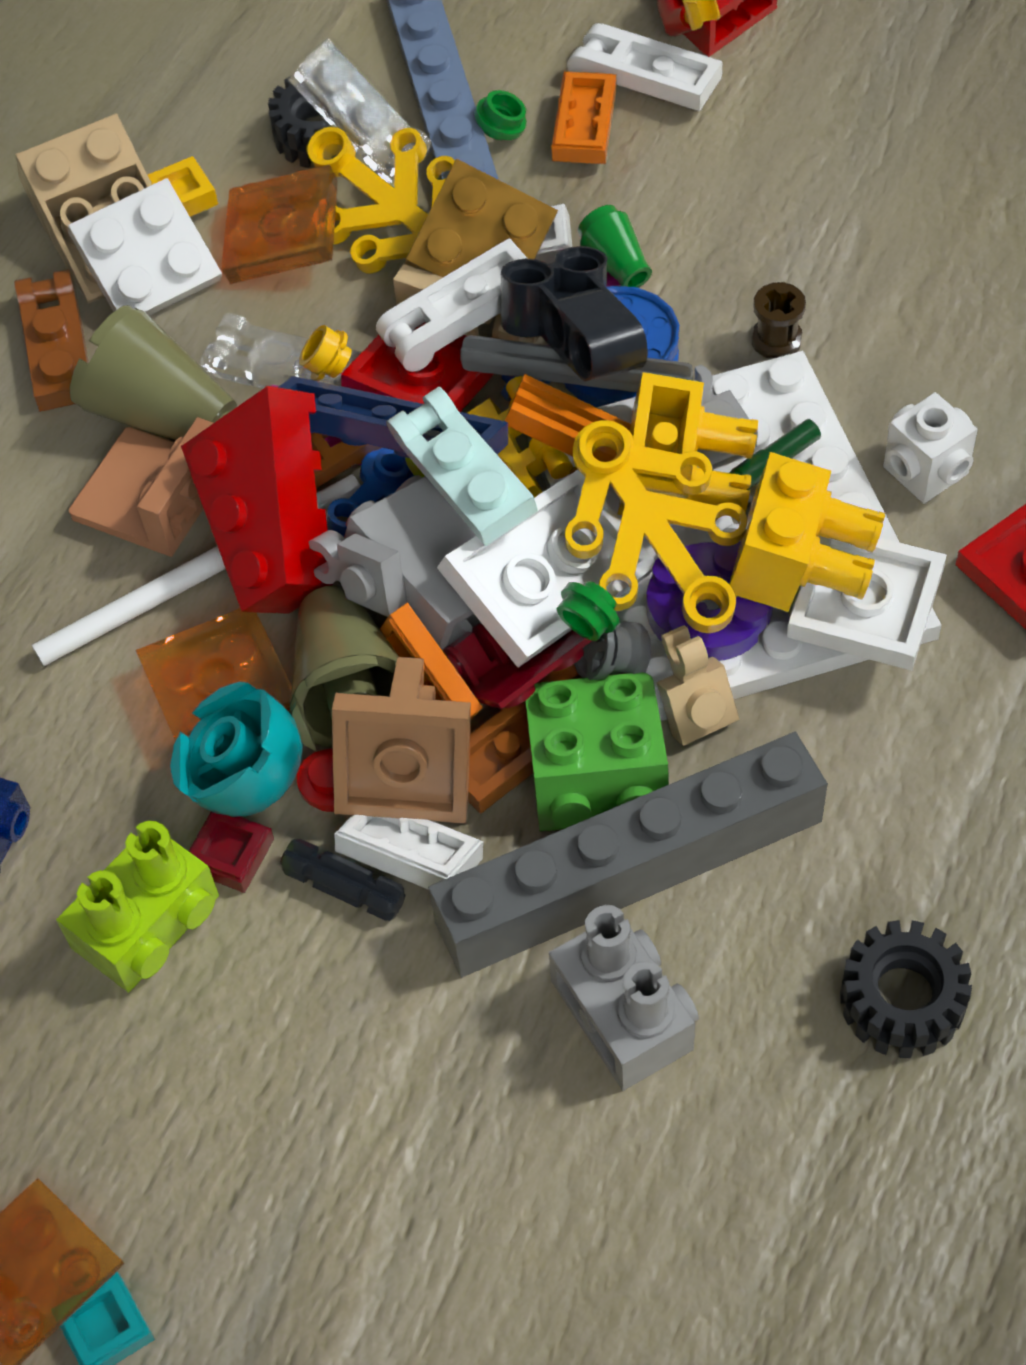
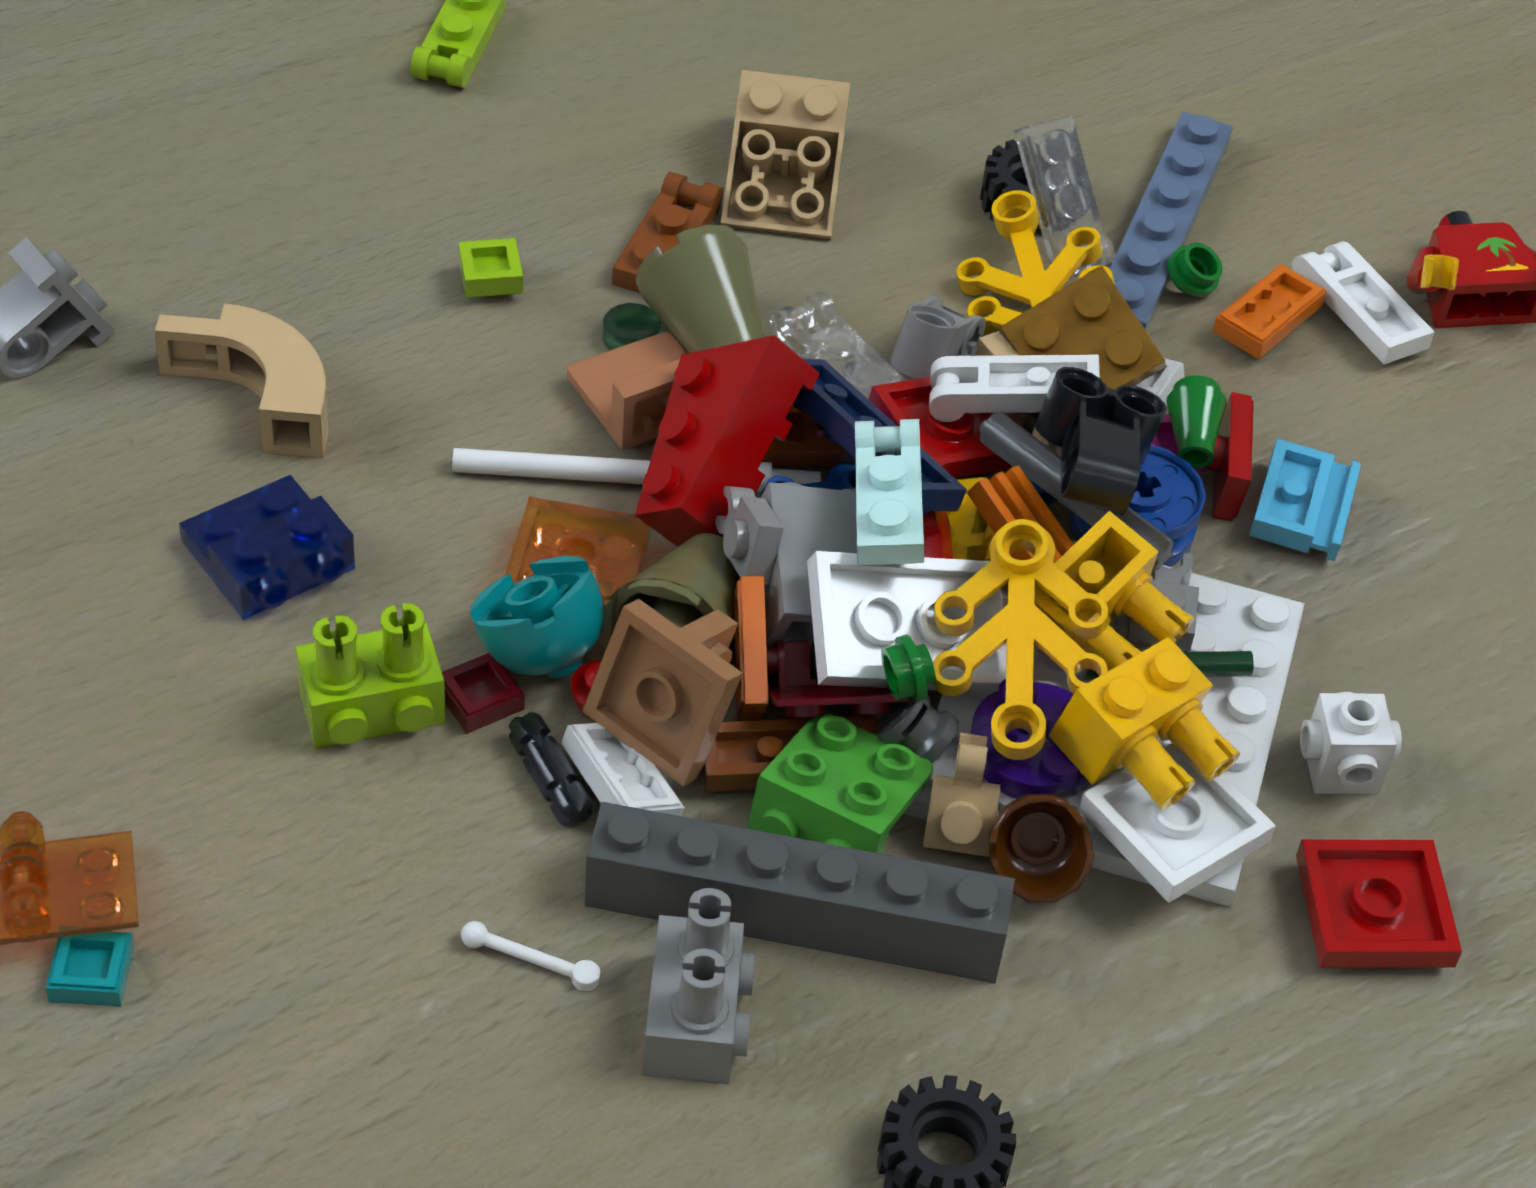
camera: 25 degrees right, 10 degrees down
(89, 441) = (629, 324): none -> clear green tile
(145, 250) = (794, 206): white plate -> none
(189, 184) = (867, 179): yellow plate -> none
(280, 224) = (927, 249): clear orange plate -> none
(325, 353) = (871, 362): yellow plate -> none
(353, 300) = (933, 333): none -> light grey piece
(511, 1039) = (584, 974): none -> white hinge
(671, 274) = (1233, 457): none -> red plate
(731, 259) = (1305, 499): none -> medium azure plate
(778, 312) = (1301, 565): dark brown bush -> none
(786, 701) = (1025, 848): none -> reddish brown hair

